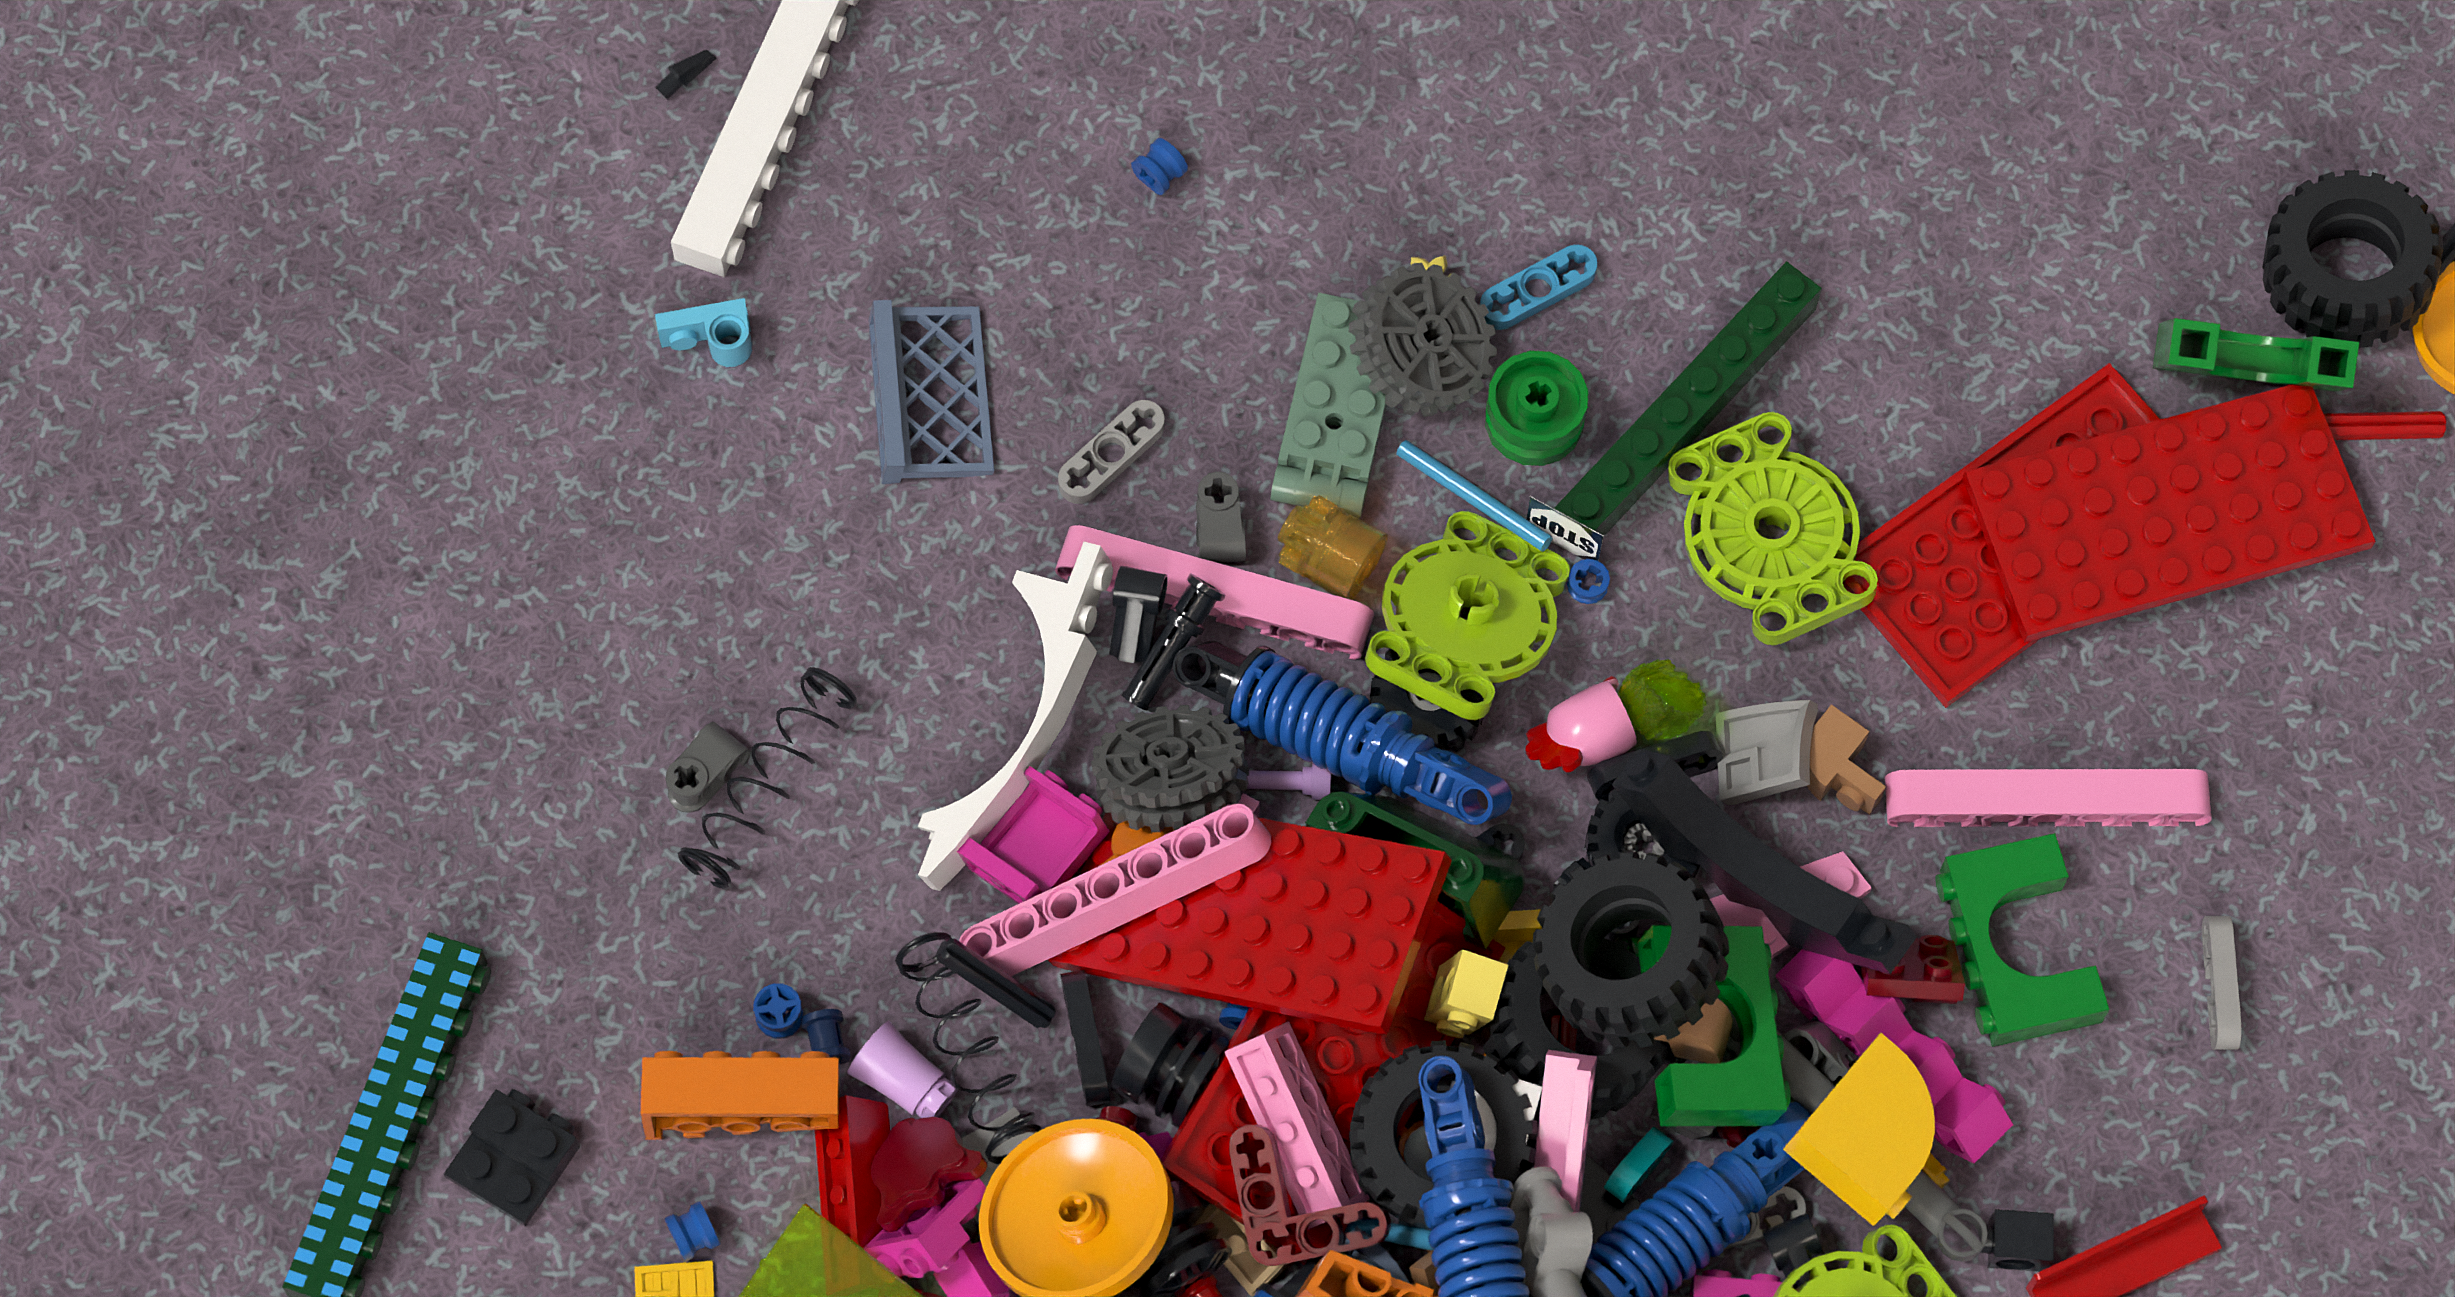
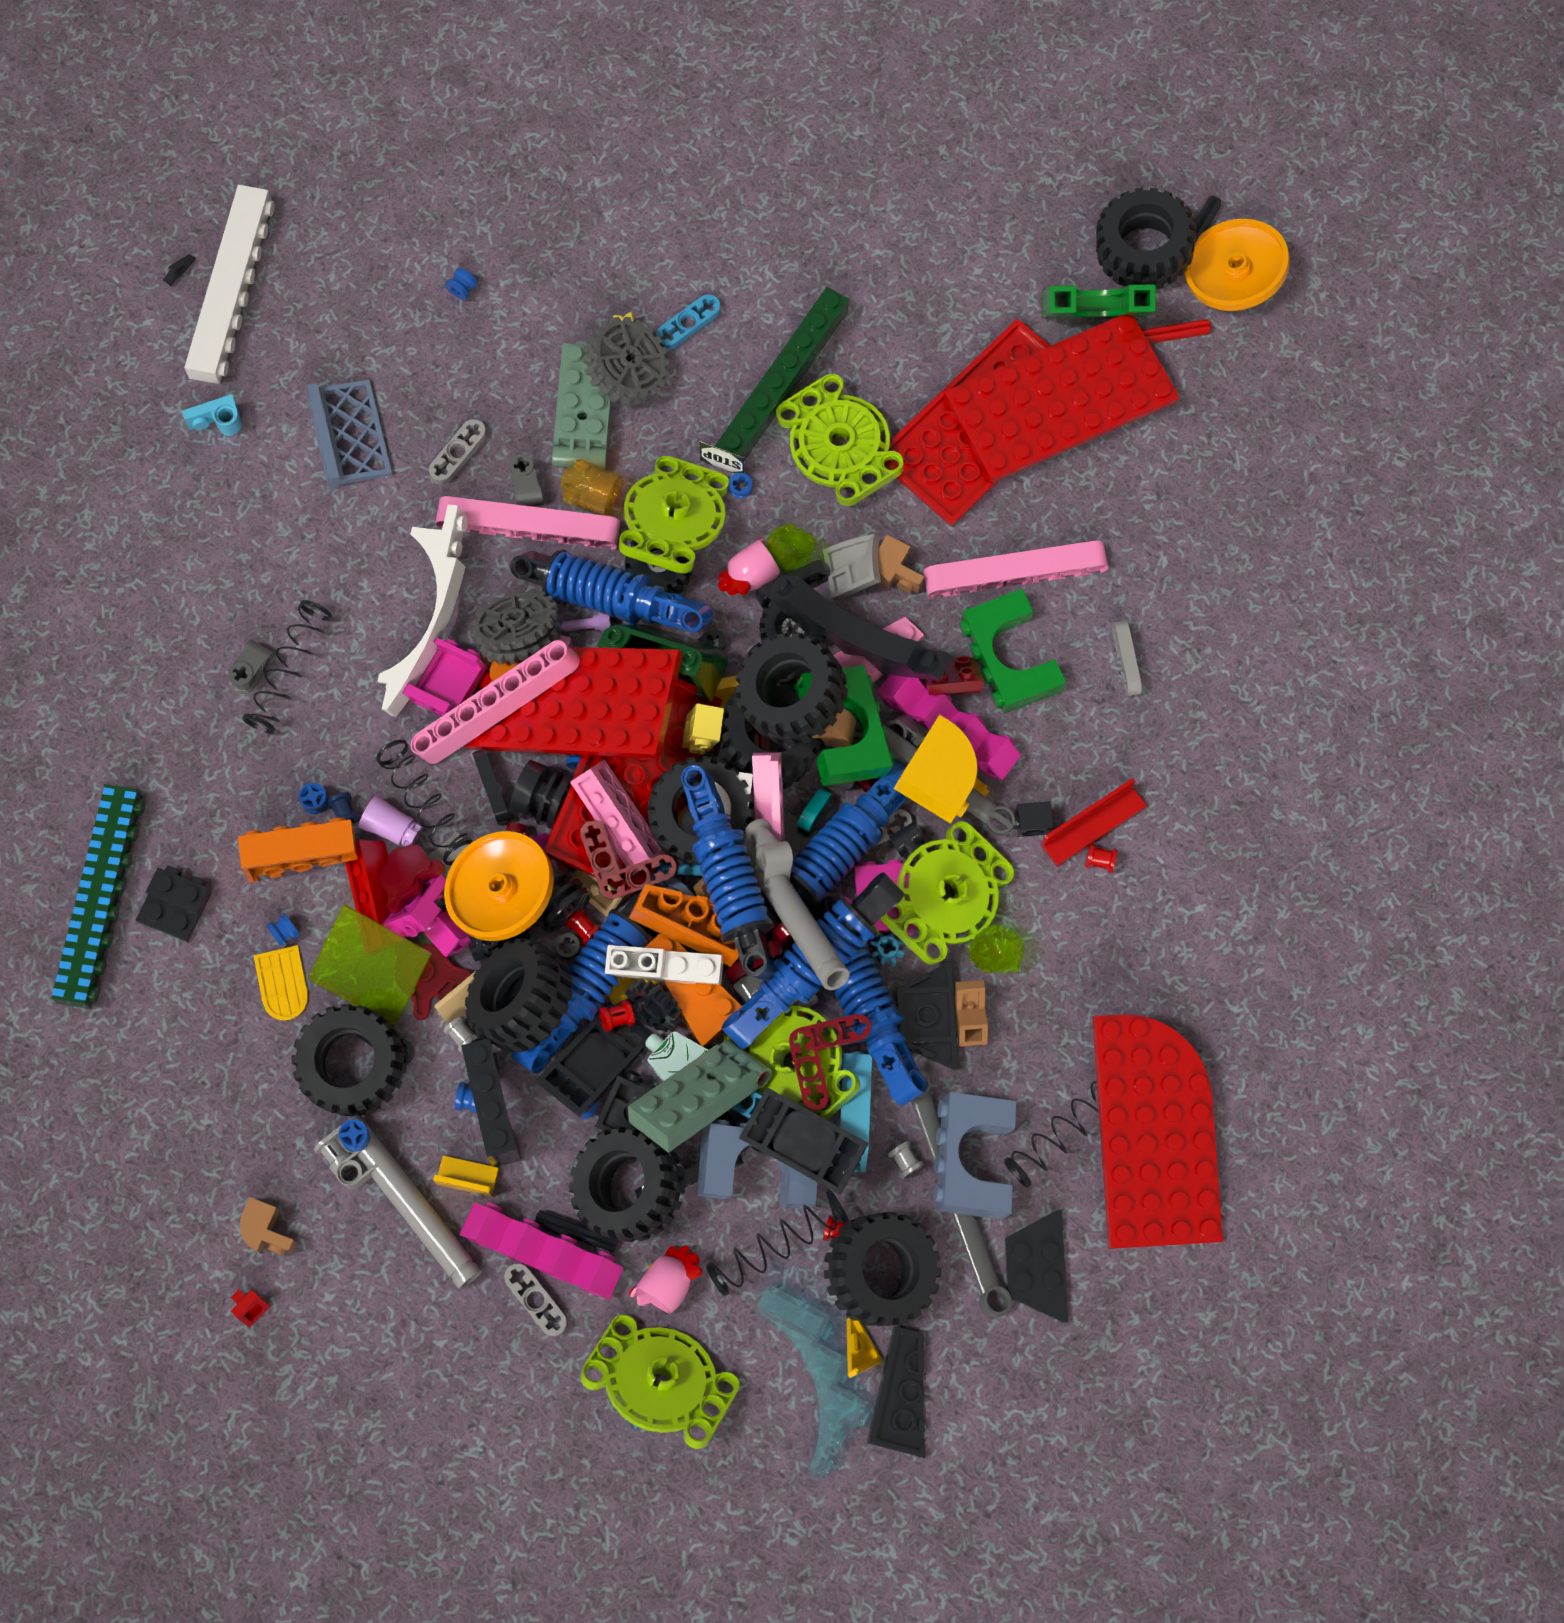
camera: 10 degrees left, 5 degrees up
(995, 983) = (435, 763): black axle -> none
(1138, 601) = (485, 534): black piece -> none
(1183, 623) = (512, 544): black pin -> none
(1474, 495) = (668, 446): dark azure bar -> none
(1536, 408) = (696, 391): green wheel -> none

